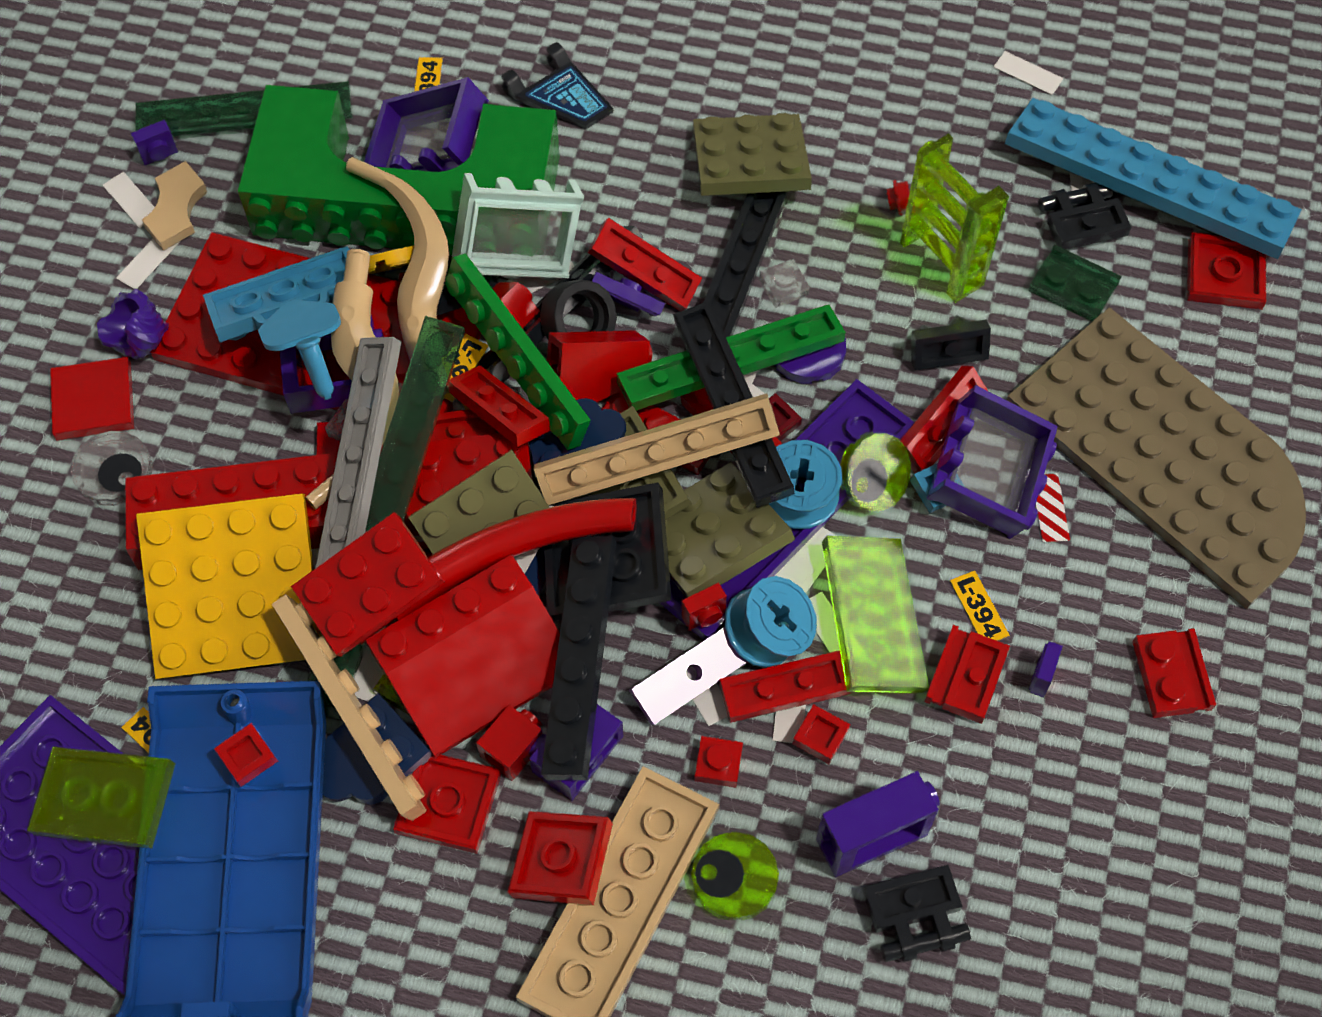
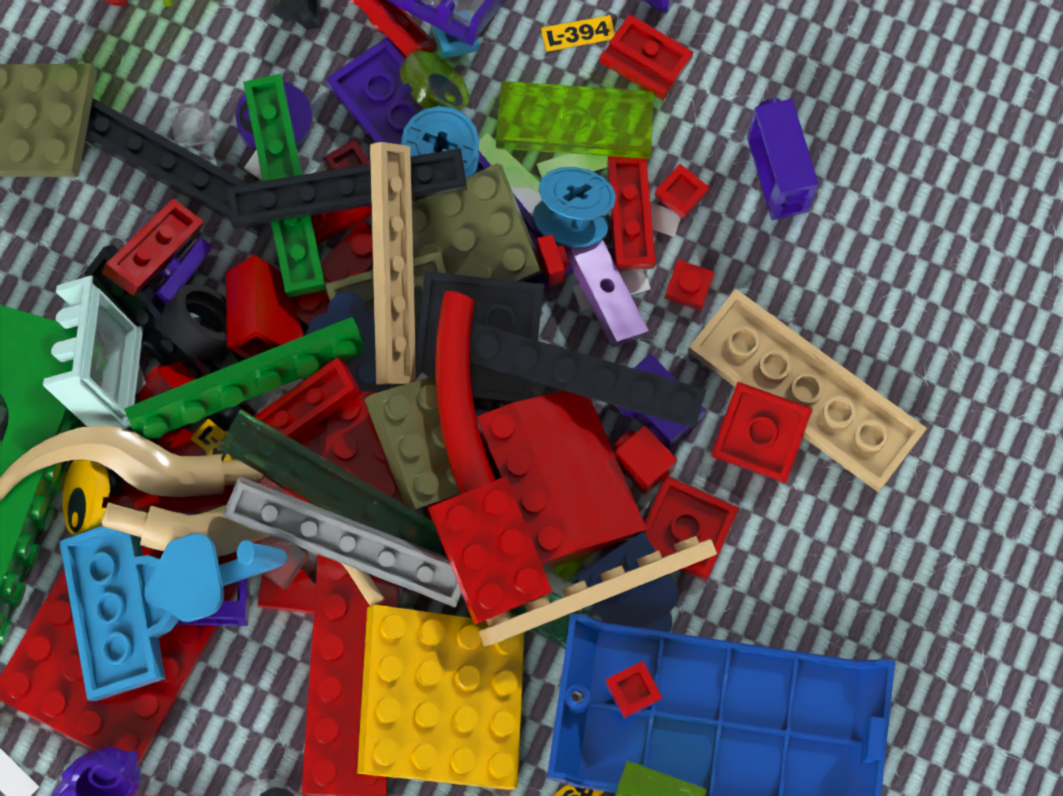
camera: 85 degrees left, 10 degrees up
(734, 876) = (797, 291): clear neon green tile -> none
(912, 900) = (843, 153): black plate -> none

